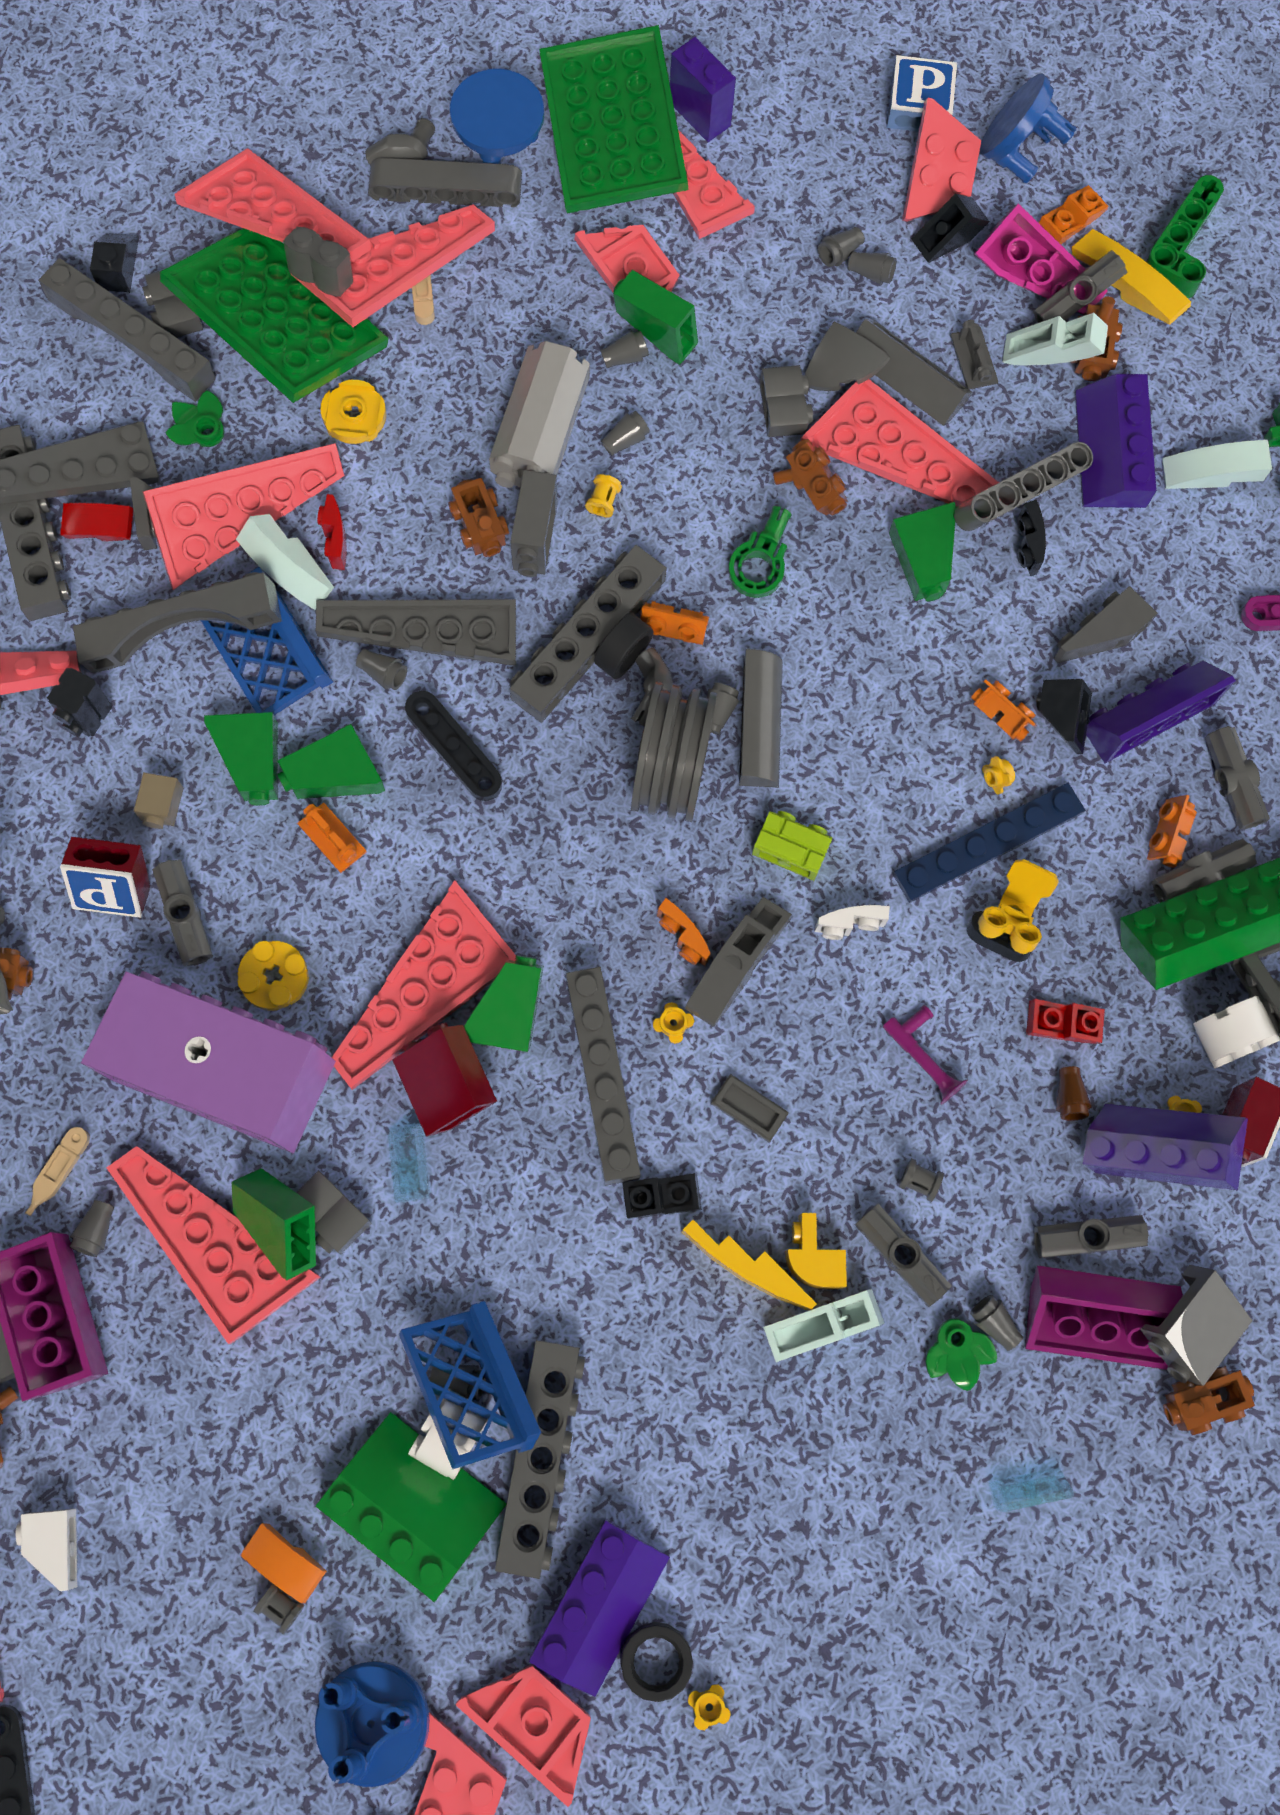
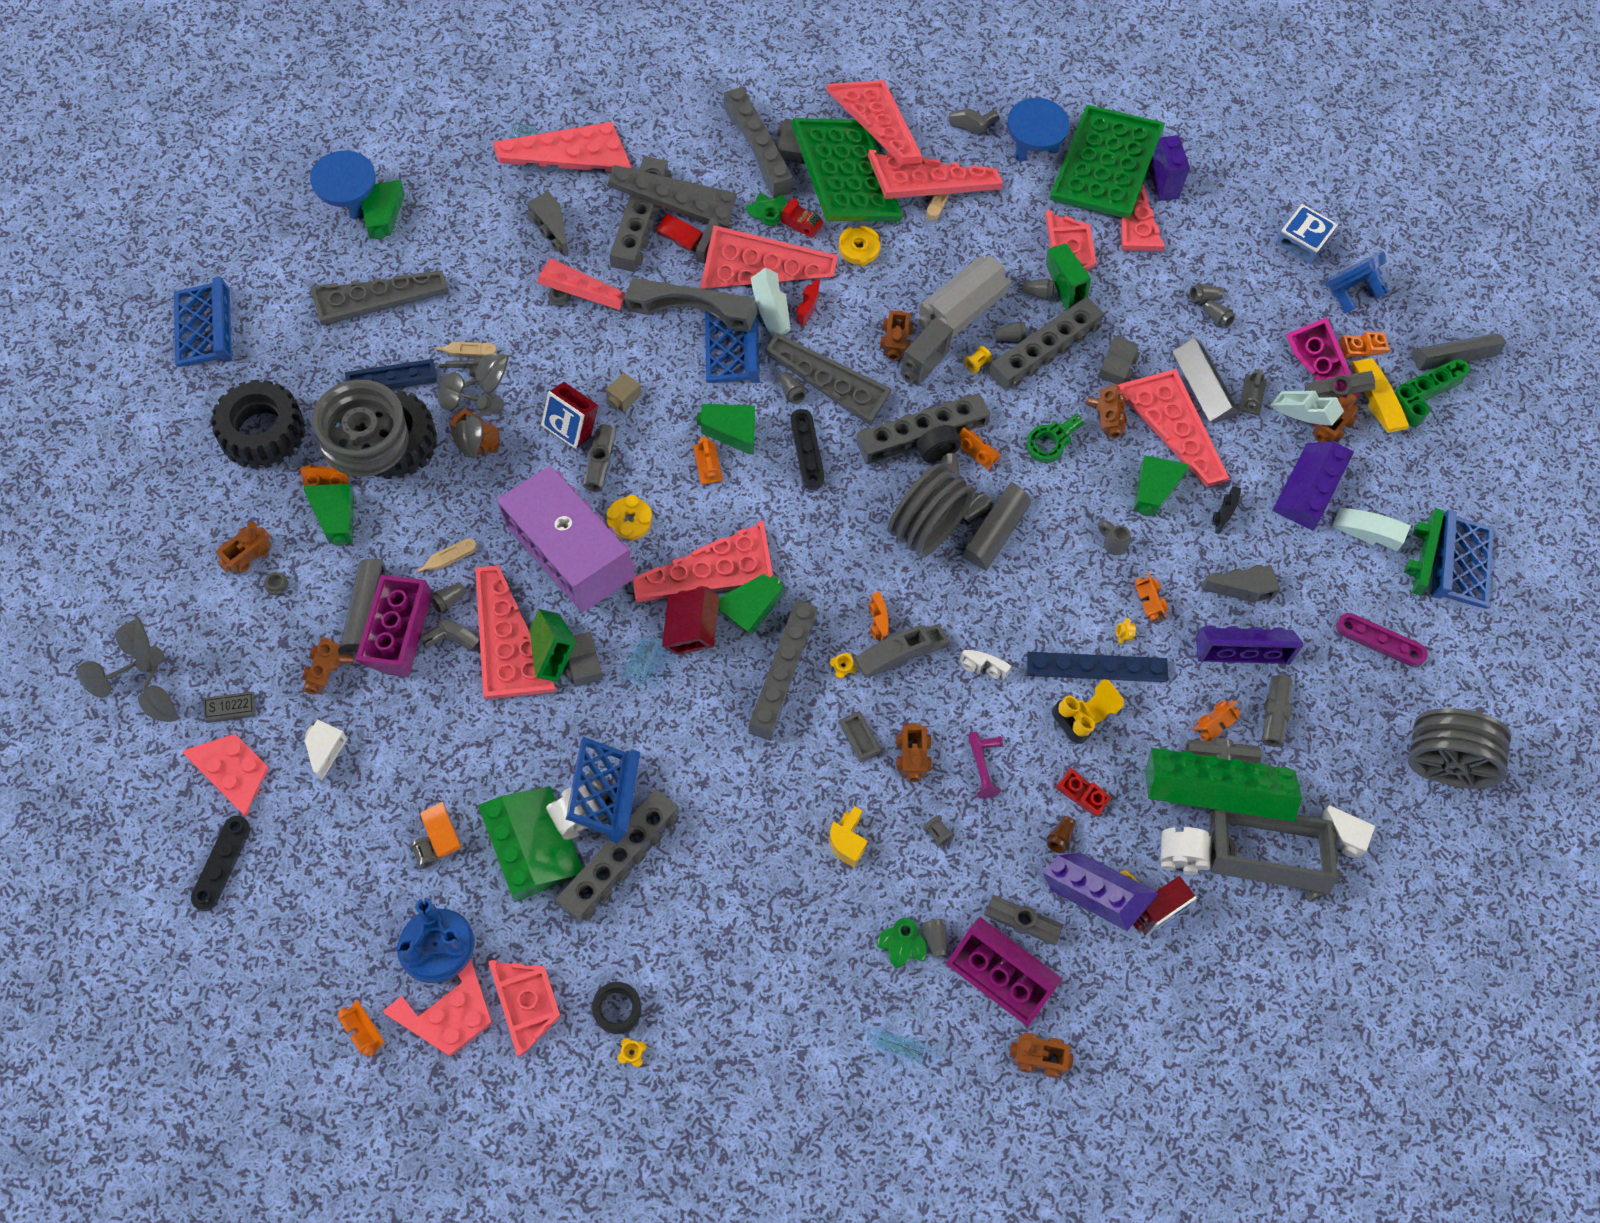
camera: 30 degrees right, 10 degrees down
(78, 703) = (611, 319): black brick -> none
(114, 261) = (772, 104): black slope -> none
(129, 1276) = (453, 632): none -> dark grey arm
(249, 752) = (688, 393): green slope -> none
(253, 414) = (801, 219): none -> red leg
(318, 261) = (885, 153): dark grey brick -> none
(445, 181) = (988, 149): dark grey beam -> none
(598, 1608) = (602, 957): dark purple slope -> none
(661, 1196) = (775, 755): black slope -> none
(704, 355) = (1035, 345): none -> dark grey brick
(761, 1273) = (808, 827): yellow slope -> none
(792, 844) = (974, 604): lime brick -> none
(823, 1325) = (830, 879): light aqua slope -> none
(836, 1100) = (913, 760): none -> dark orange brick
(842, 359) = (1167, 353): dark grey brick -> none
(917, 654) = (1116, 537): none -> dark grey piece
(920, 1272) = (905, 880): dark grey piece -> none
(942, 162) = (1295, 277): coral wing -> none
(950, 227) = (1280, 314): black slope -> none
(1023, 486) = (1247, 475): dark grey beam -> none
(1066, 709) = (1190, 615): black slope -> none
(1191, 164) = (1464, 349): none -> dark grey brick
(1199, 1327) = (1058, 1004): panel -> none

